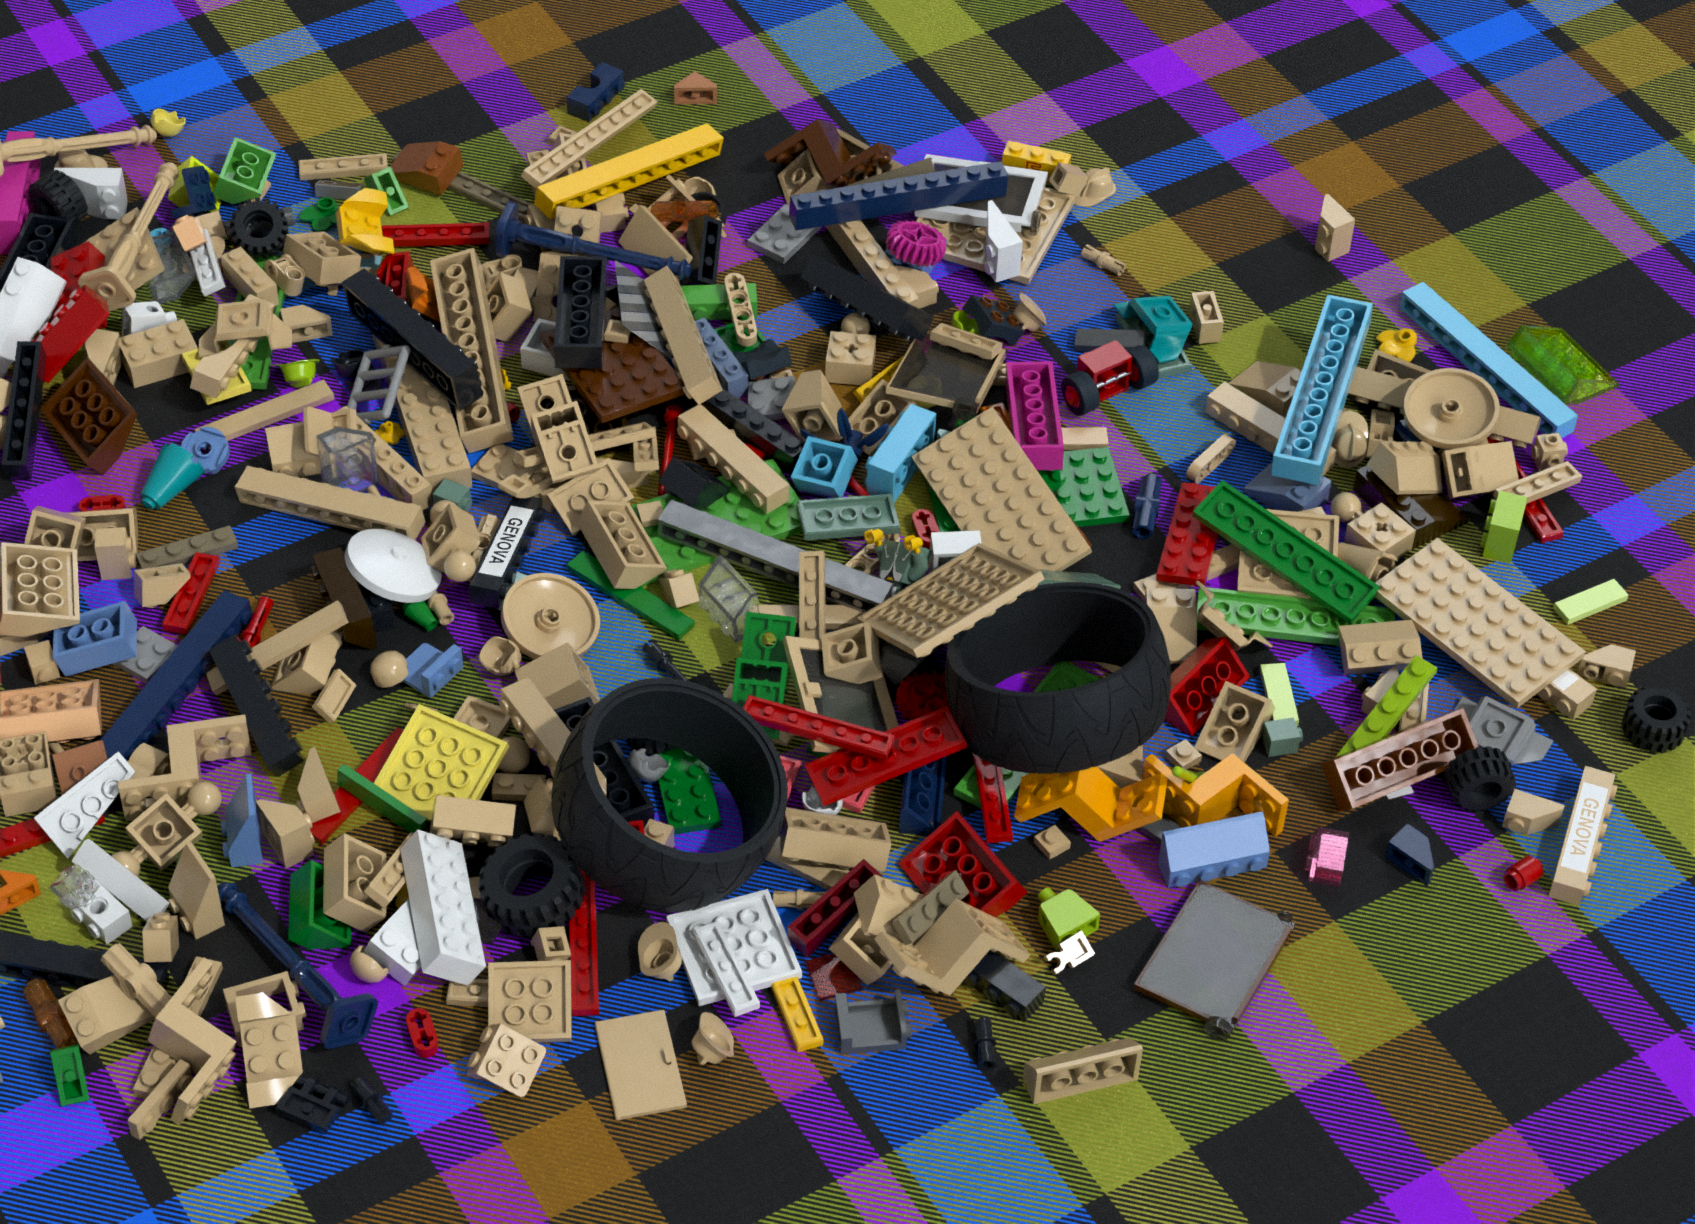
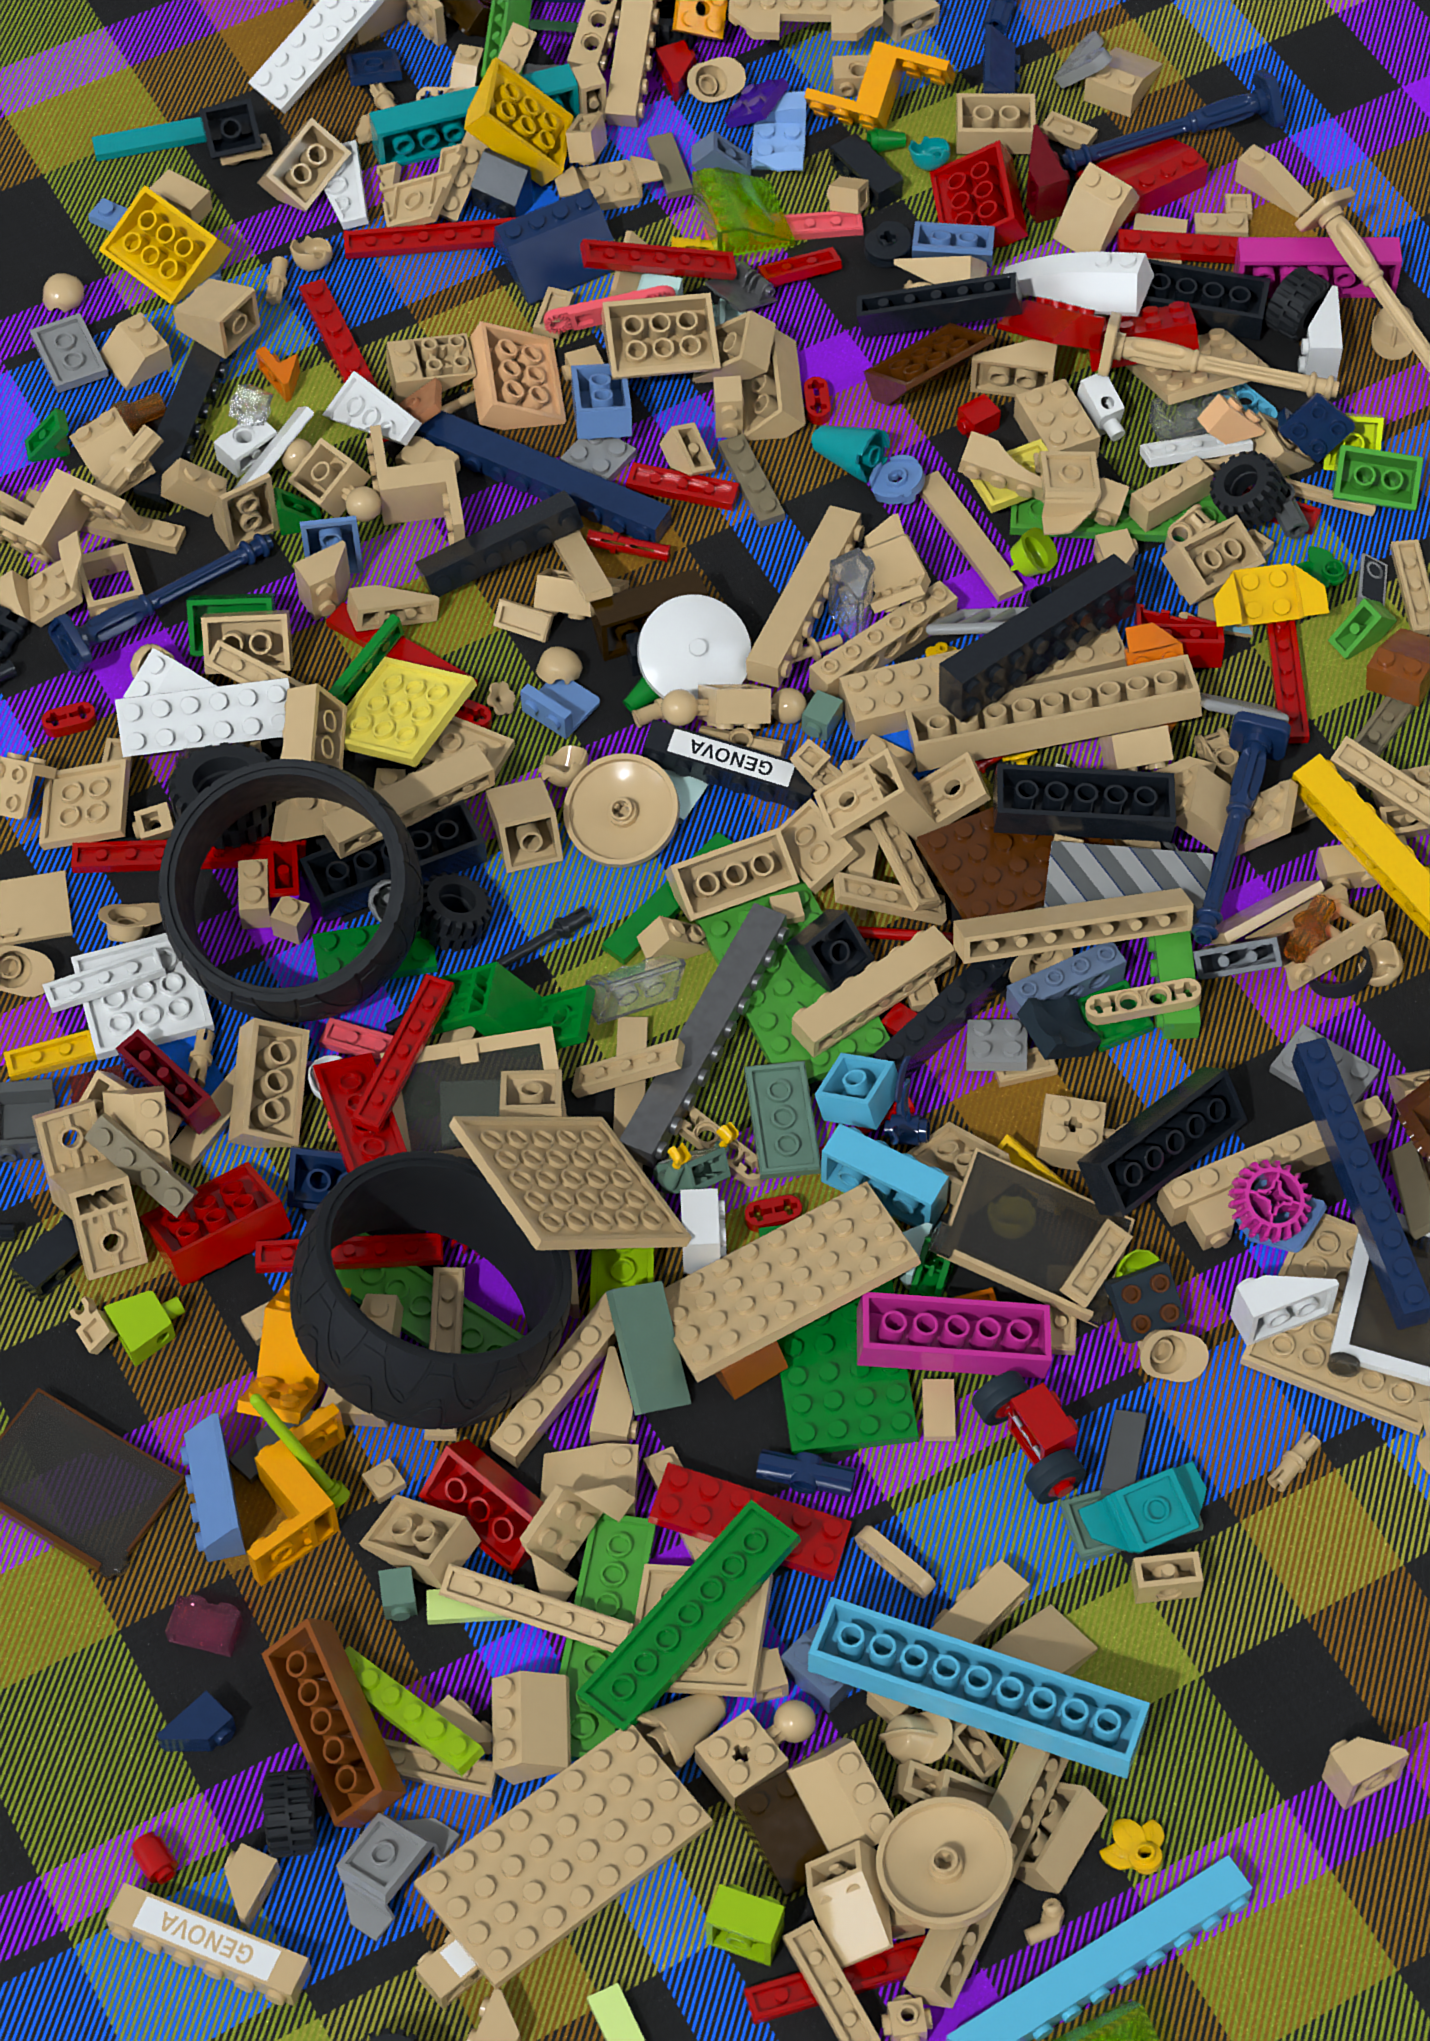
camera: 95 degrees right, 10 degrees up
(142, 401) = (978, 416): none -> red brick
(477, 236) = (1232, 706): none -> light grey bar
(813, 407) = (962, 1082): tan slope -> none
(1287, 647) = (534, 1608): none -> tan tile

